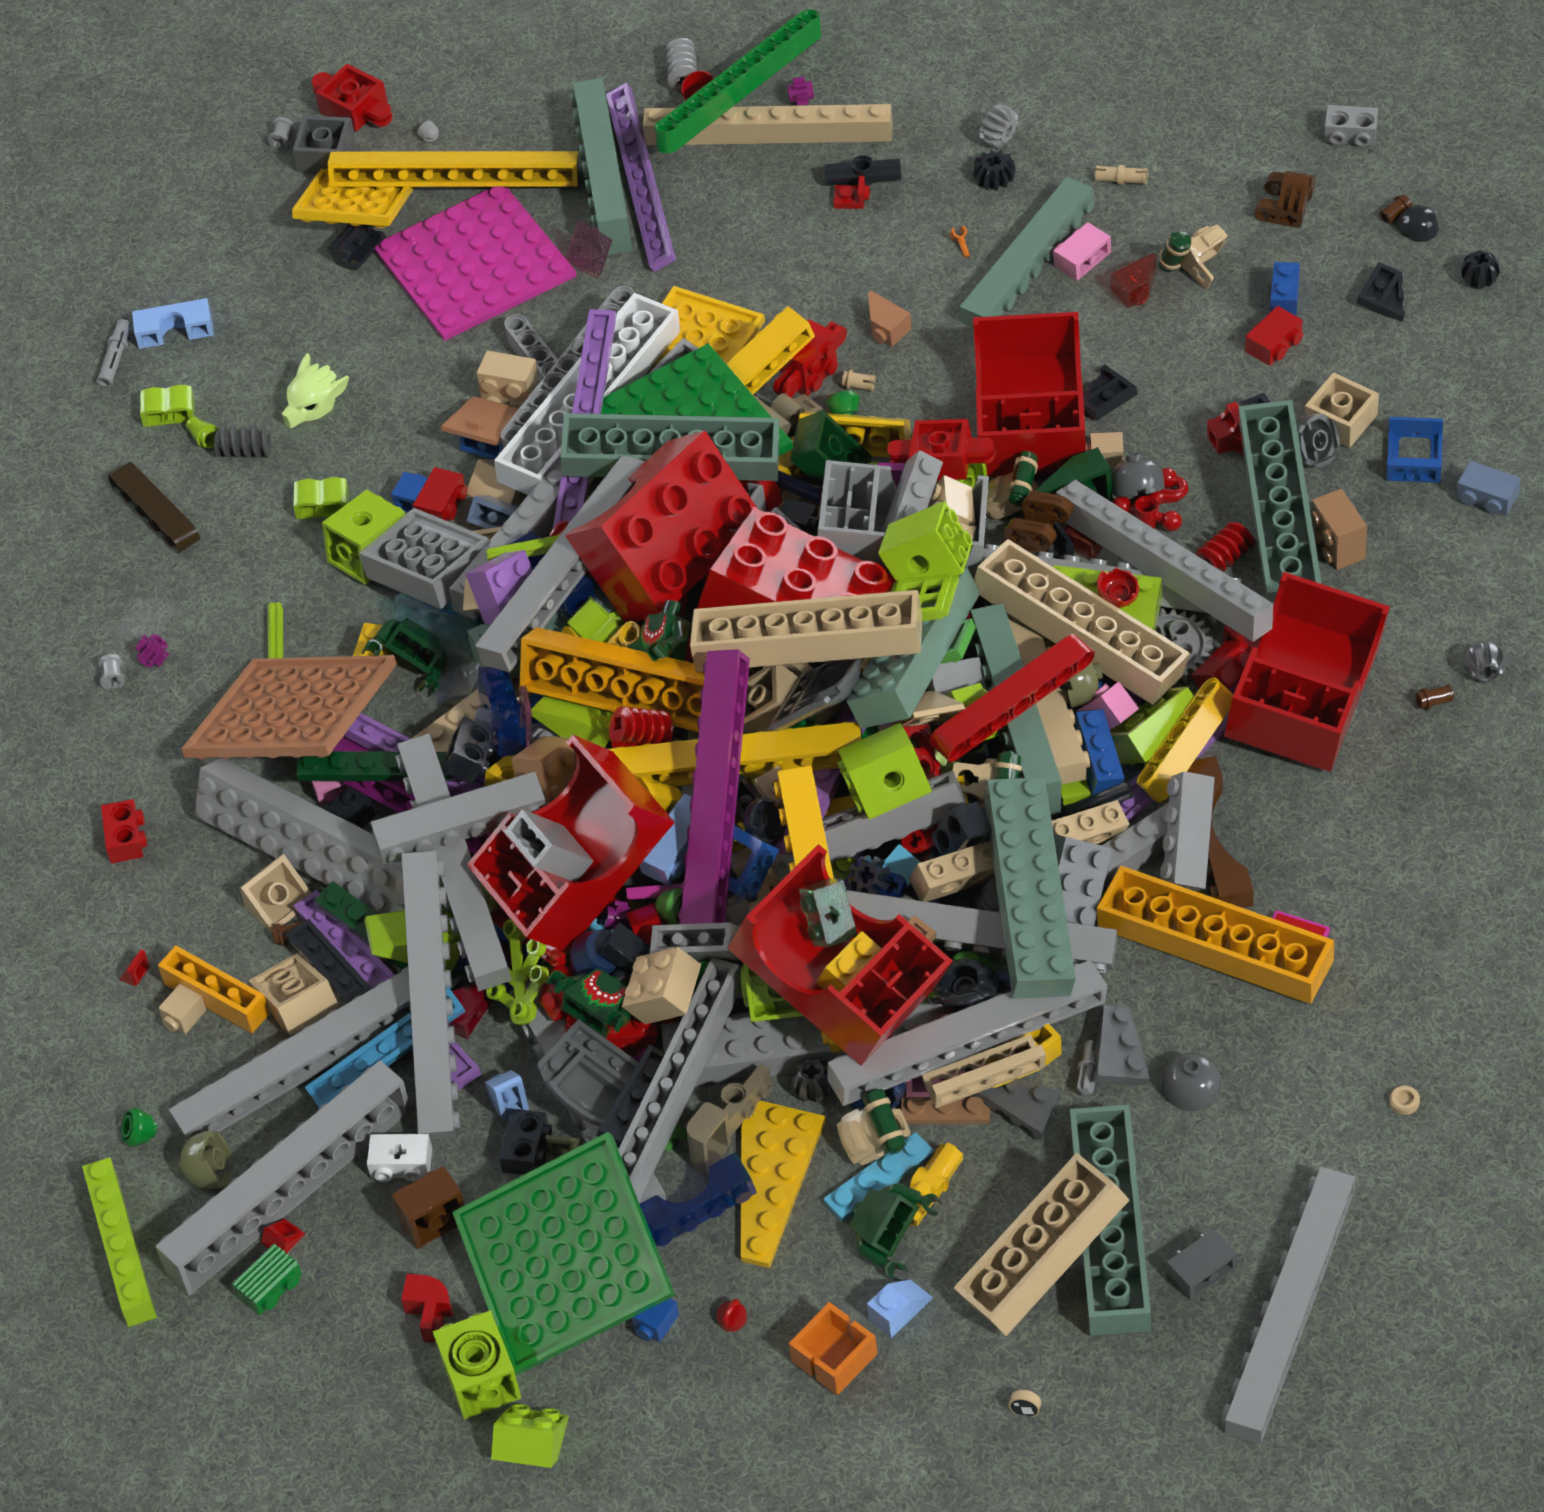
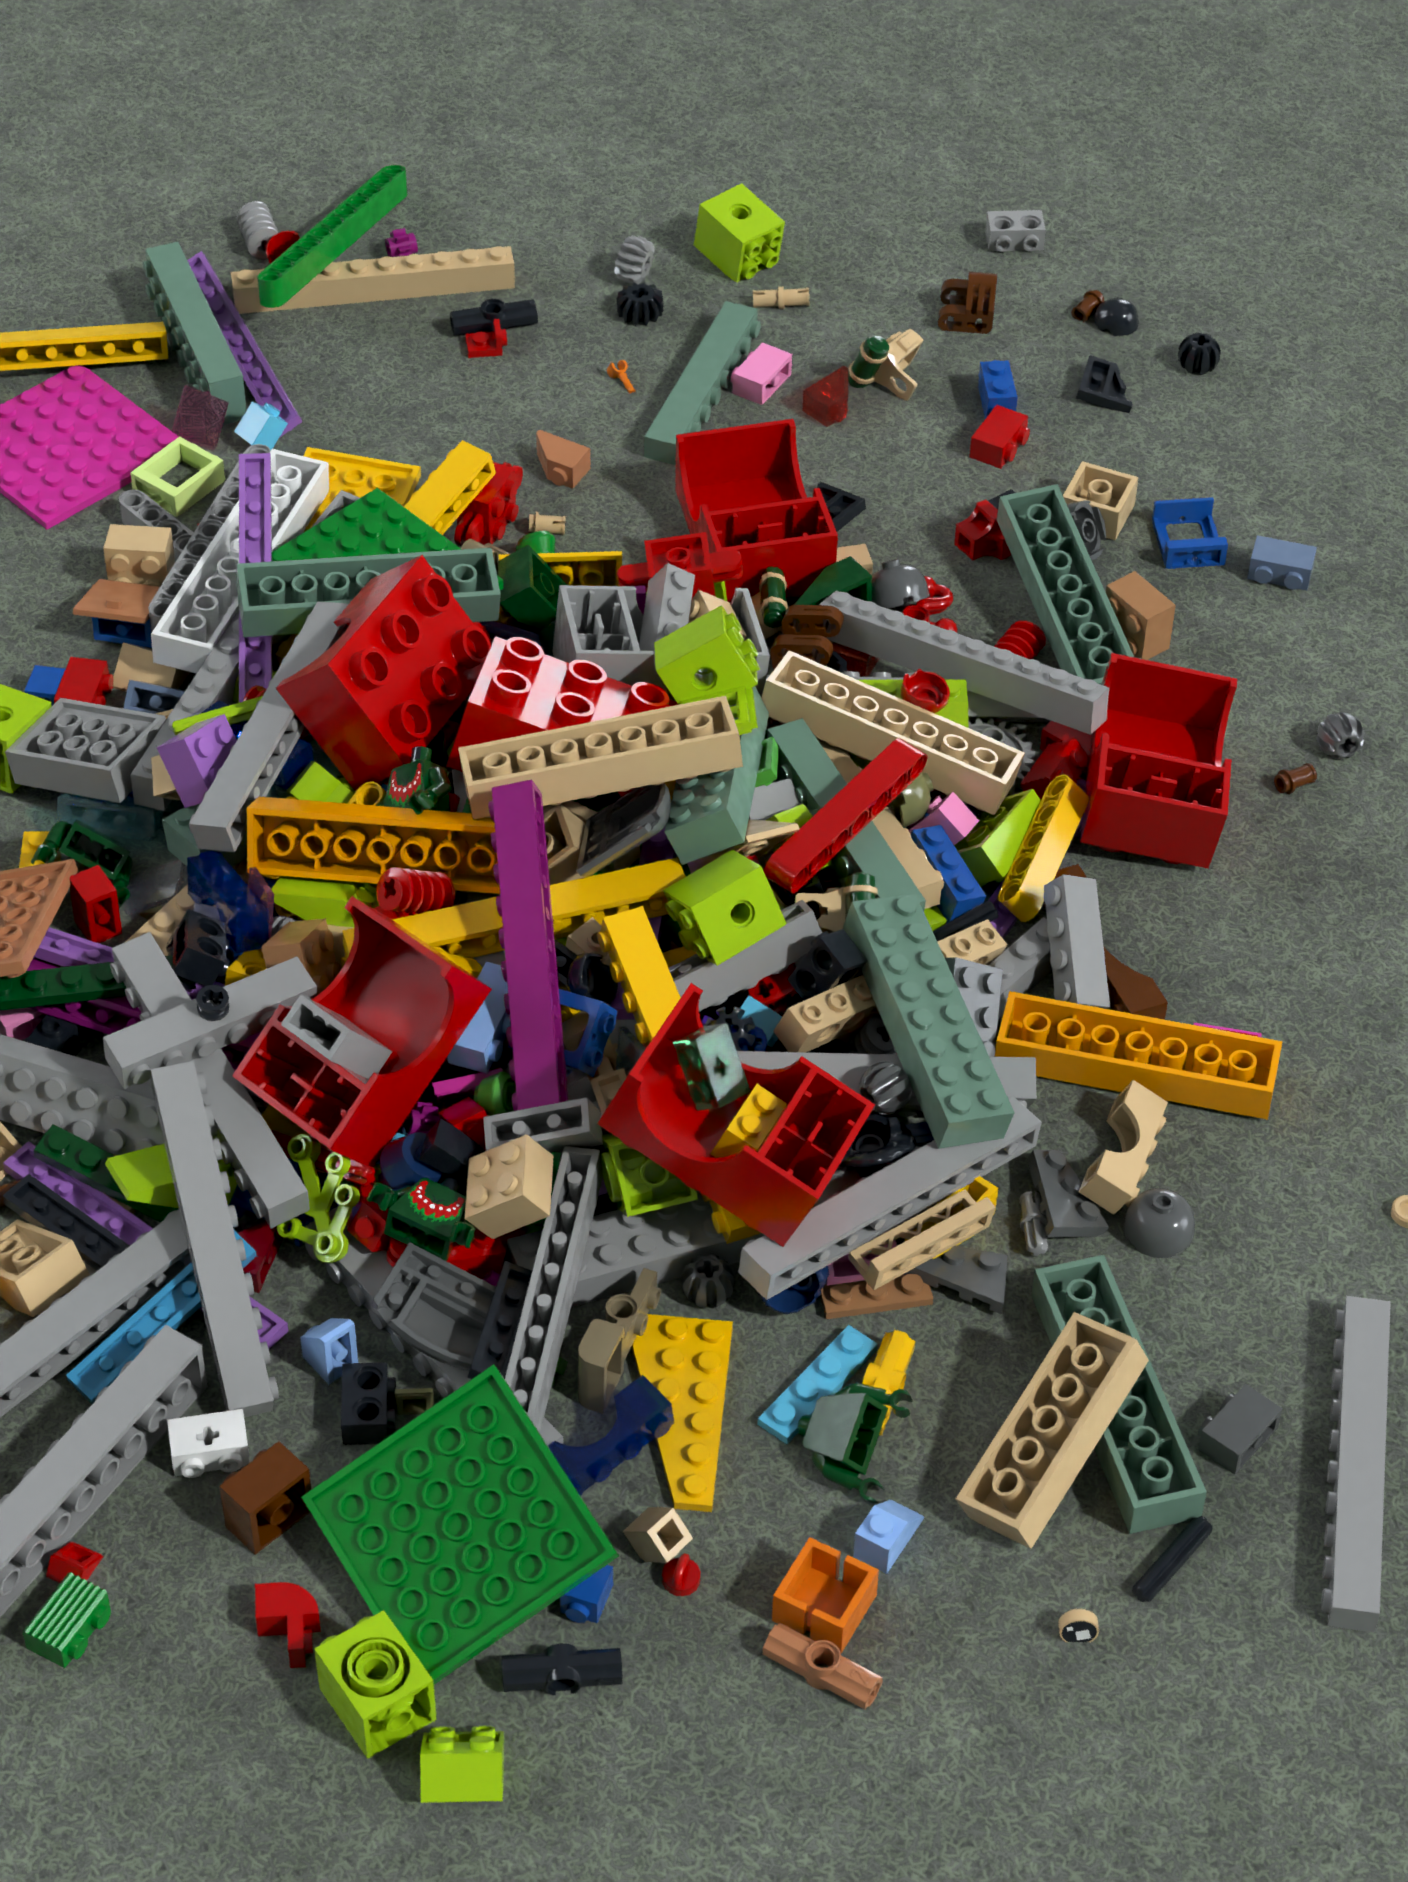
camera: 20 degrees left, 5 degrees down
(406, 694) = (95, 905): none -> red brick
(466, 800) = (207, 1010): none -> black bush
(562, 322) = (172, 498): none -> yellowish green window
(621, 1374) = (562, 1669): none -> black piece
(638, 262) = (261, 425): none -> medium azure brick
(718, 1281) = (658, 1534): none -> tan brick
(830, 1414) = (803, 1655): none -> nougat piece
(873, 1129) = (802, 1326): tan piece -> none
(983, 941) = (886, 1087): none -> dark grey piece
(1096, 109) = (738, 233): none -> lime brick
(1116, 1361) = (1172, 1559): none -> black axle
(1161, 1036) = (1114, 1175): none -> tan arch

